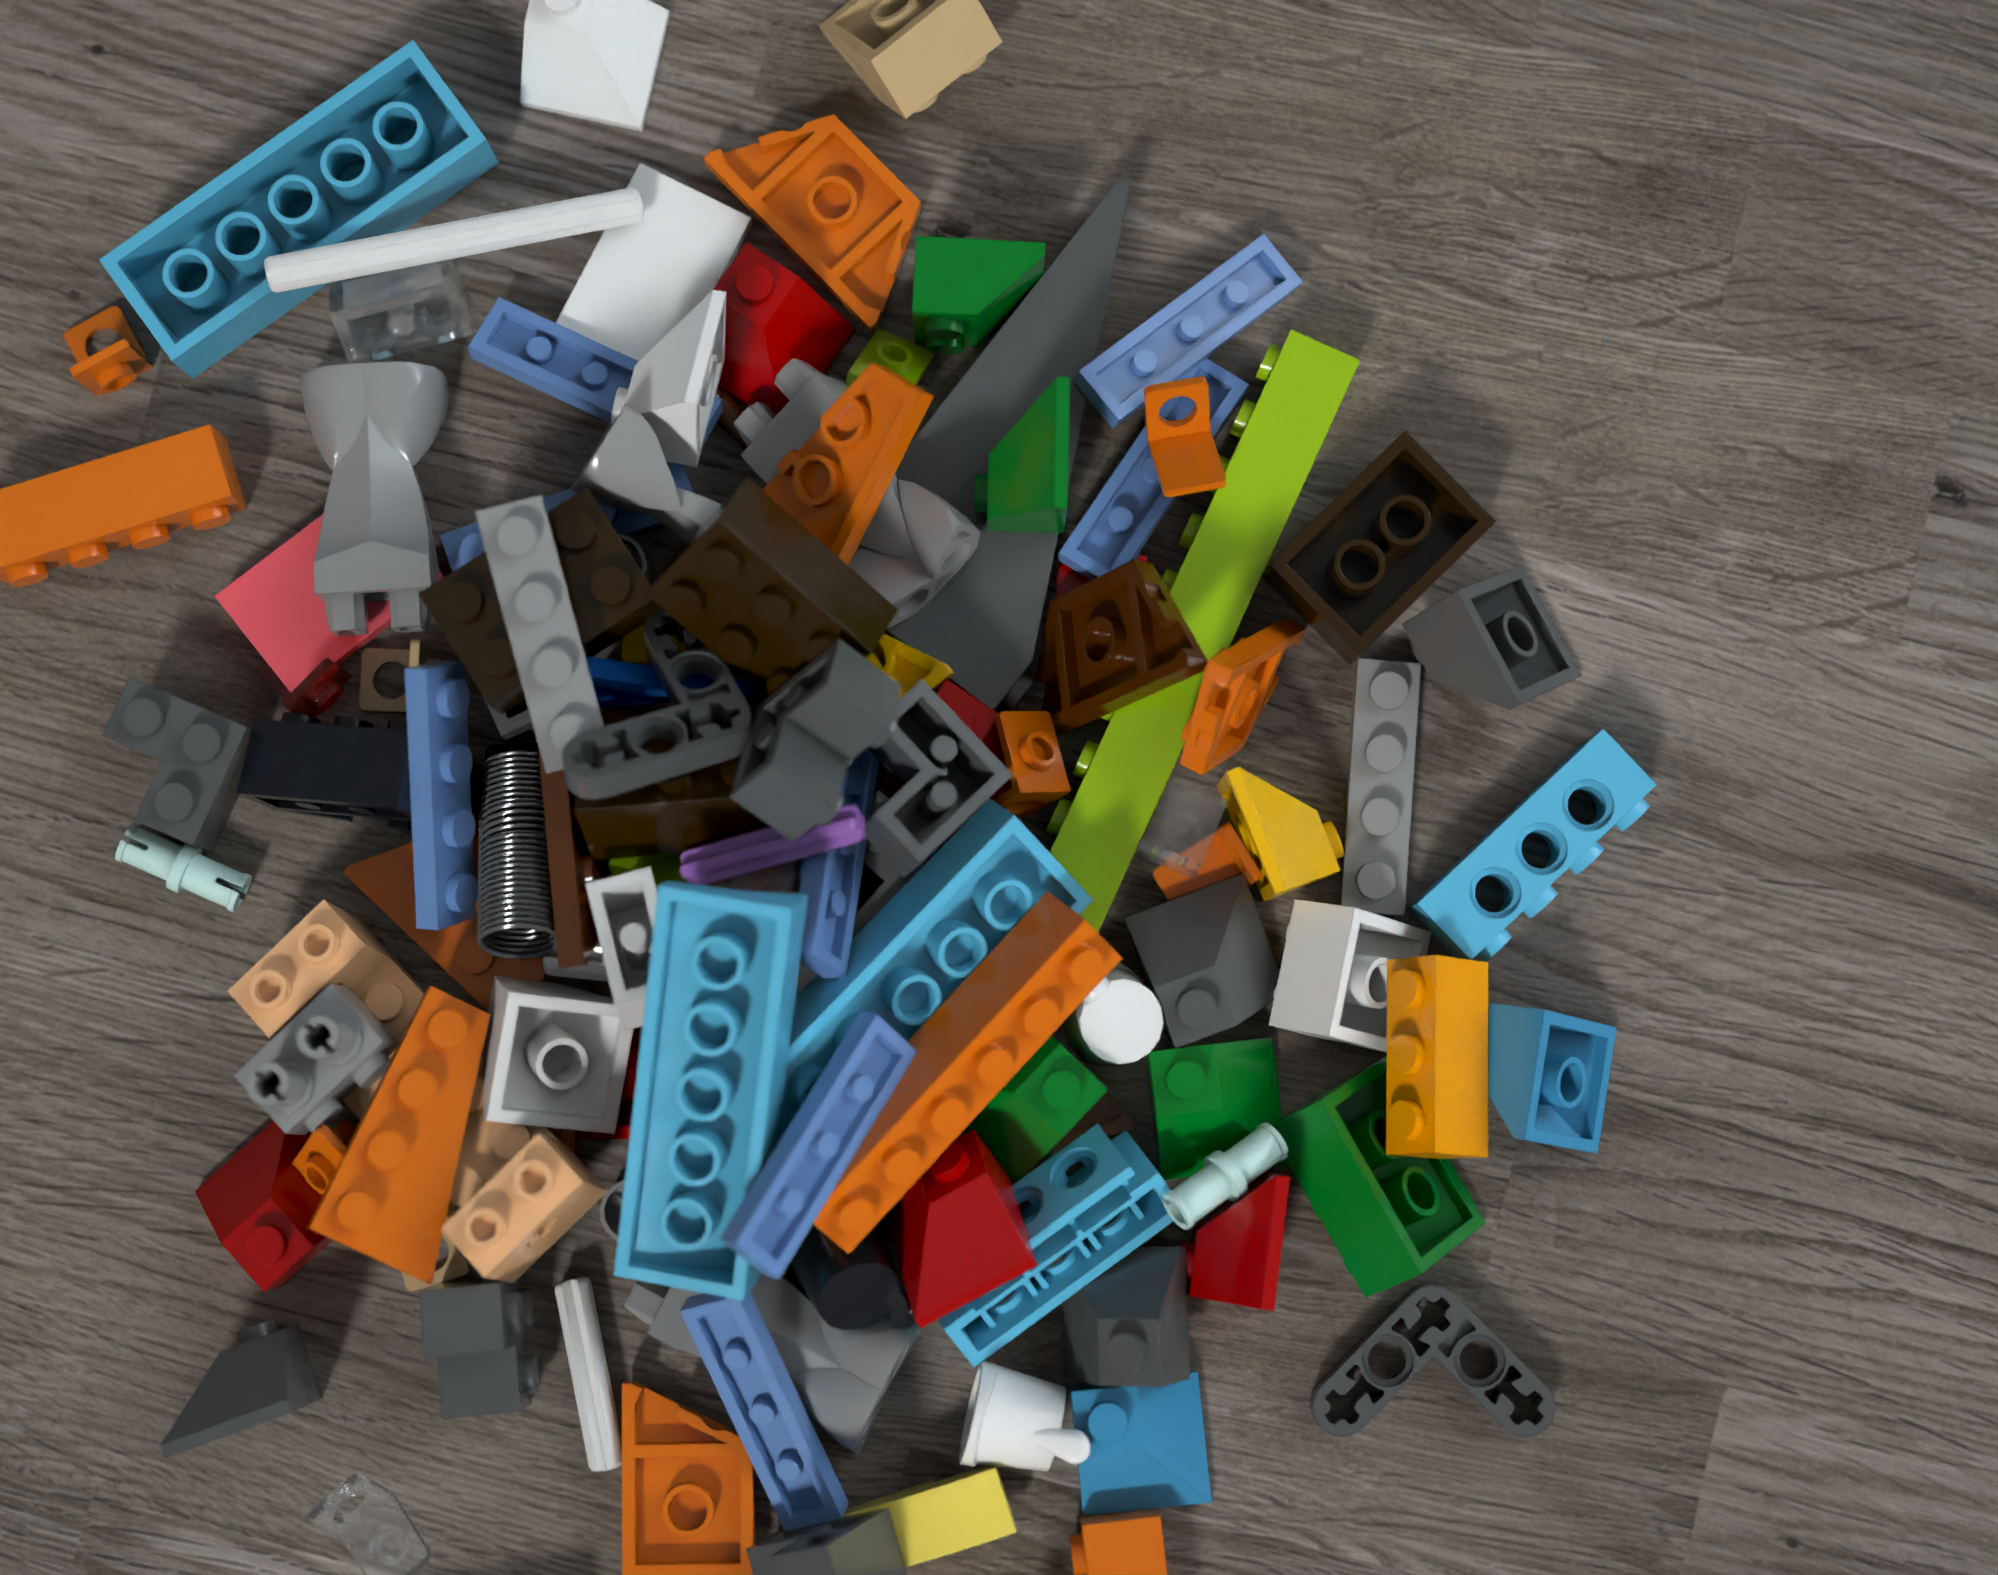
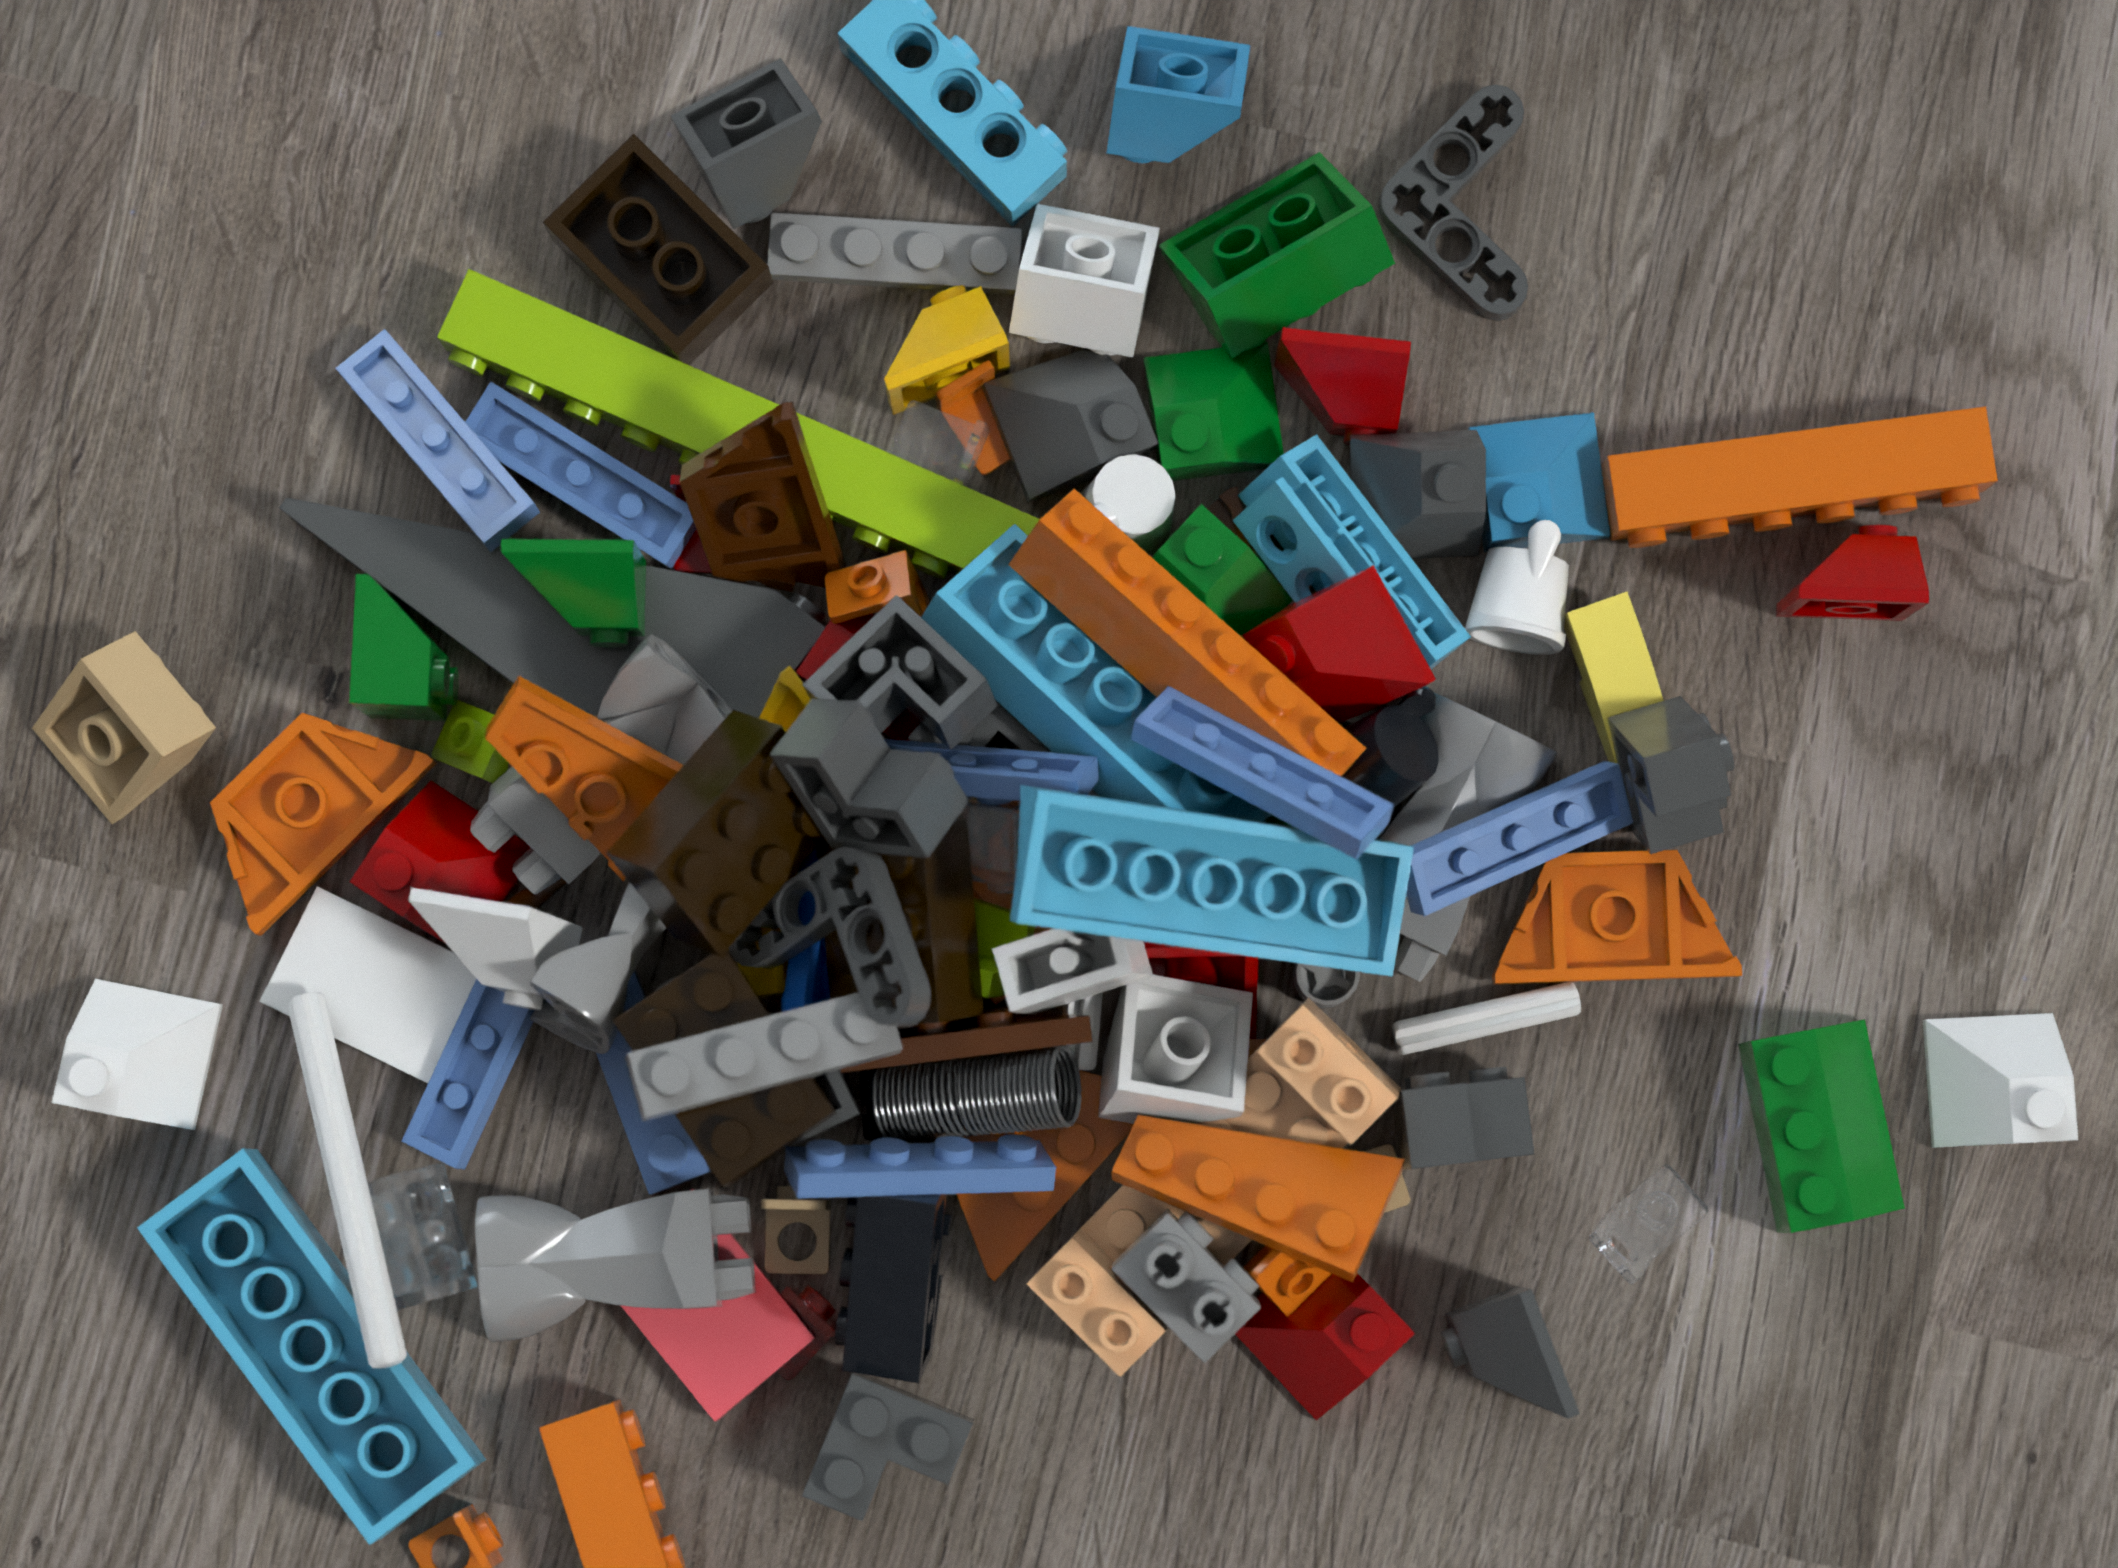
camera: 90 degrees left, 0 degrees up
(183, 867) = (992, 1443): light aqua pin -> none
(768, 848) = (973, 836): medium lavender axle -> none
(1182, 448) = (558, 441): orange bracket -> none
(1225, 1176) = (1281, 394): light aqua pin -> none
(1234, 694) = (795, 380): orange wing -> none
(1437, 1058) = (1162, 193): light orange brick -> none

